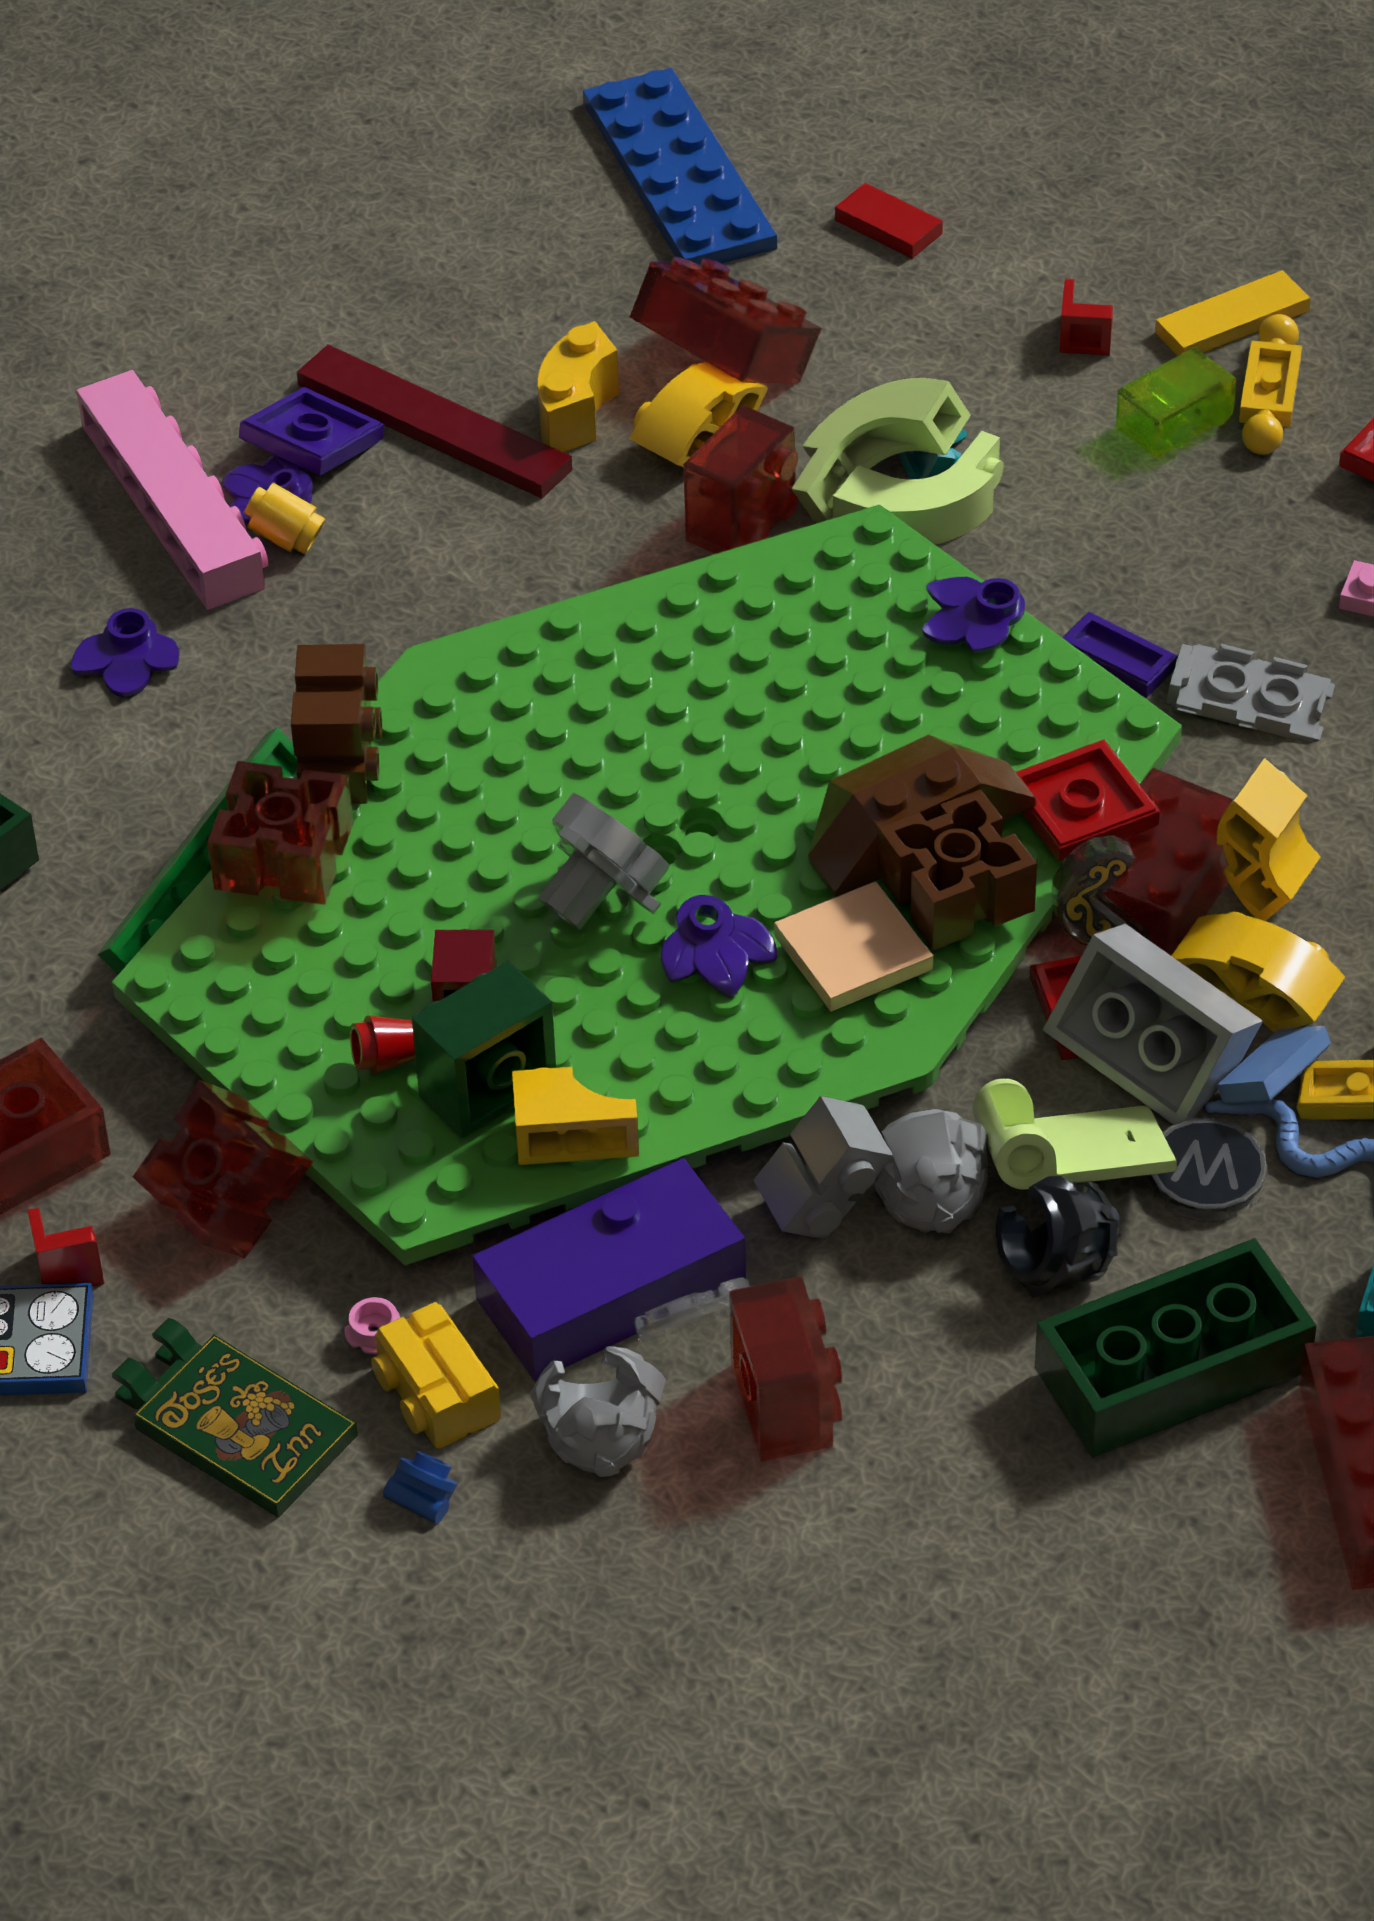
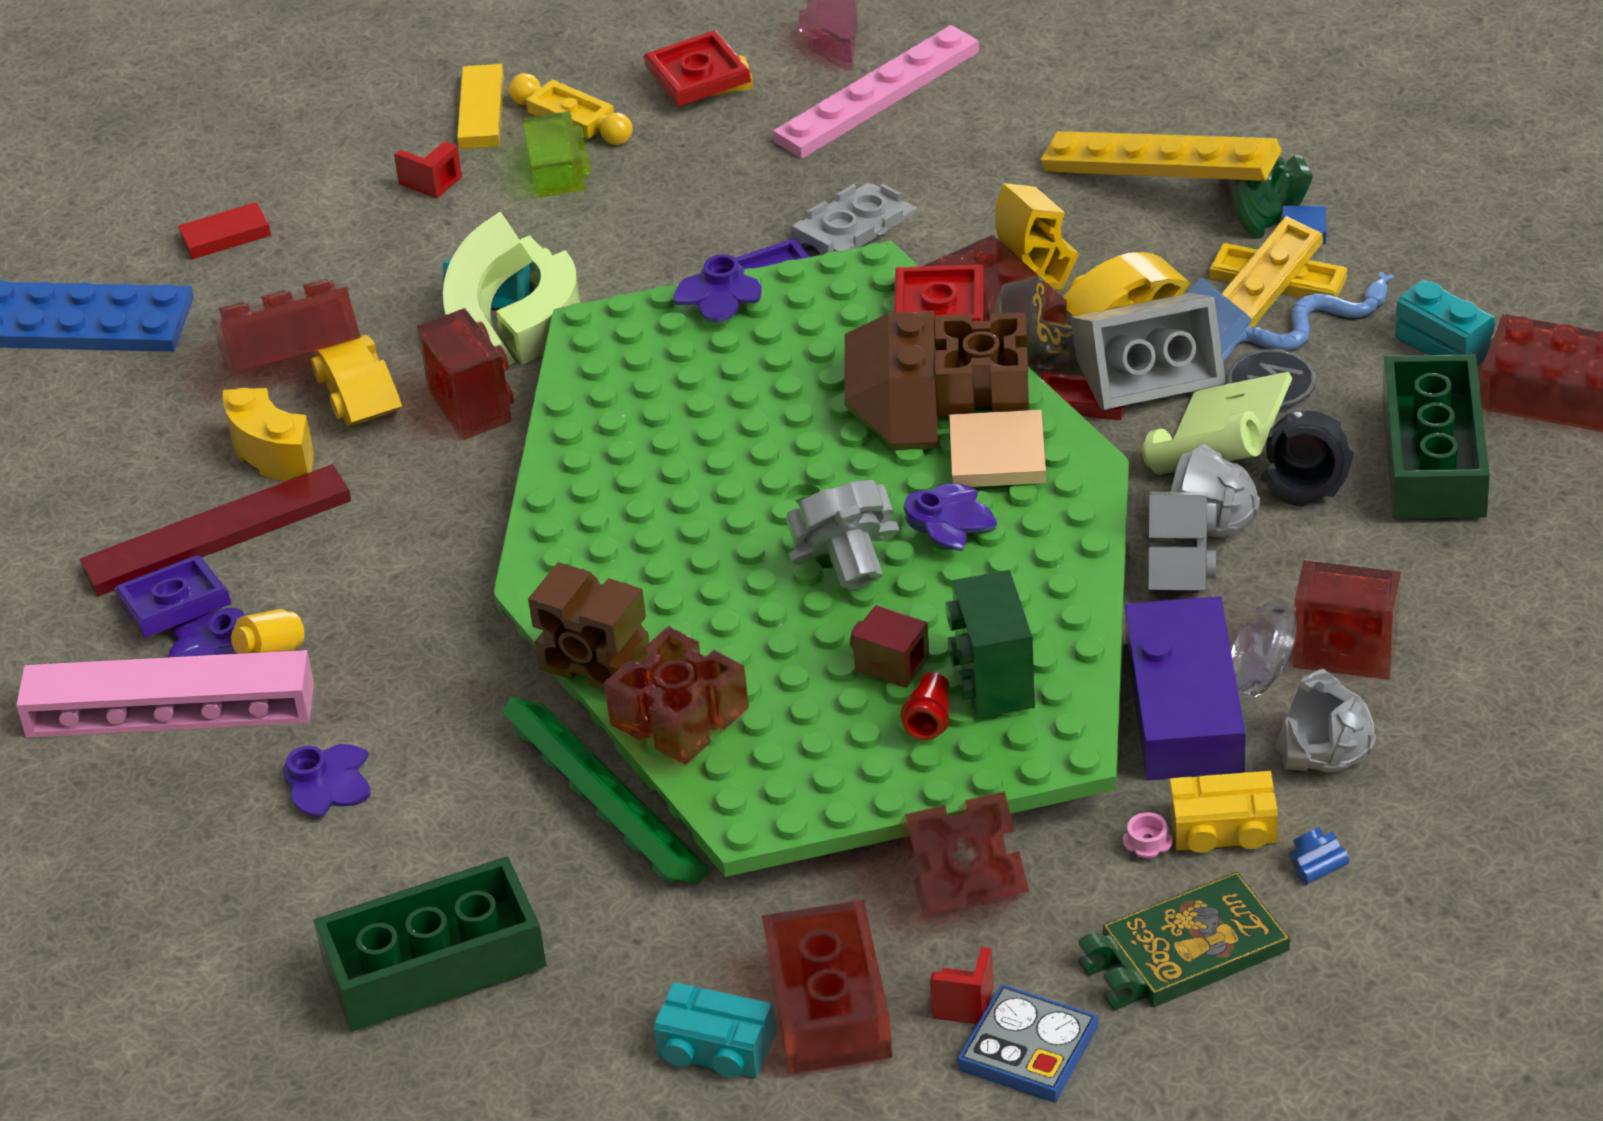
camera: 60 degrees left, 5 degrees down
(567, 1121) = (1072, 634): yellow arch -> none

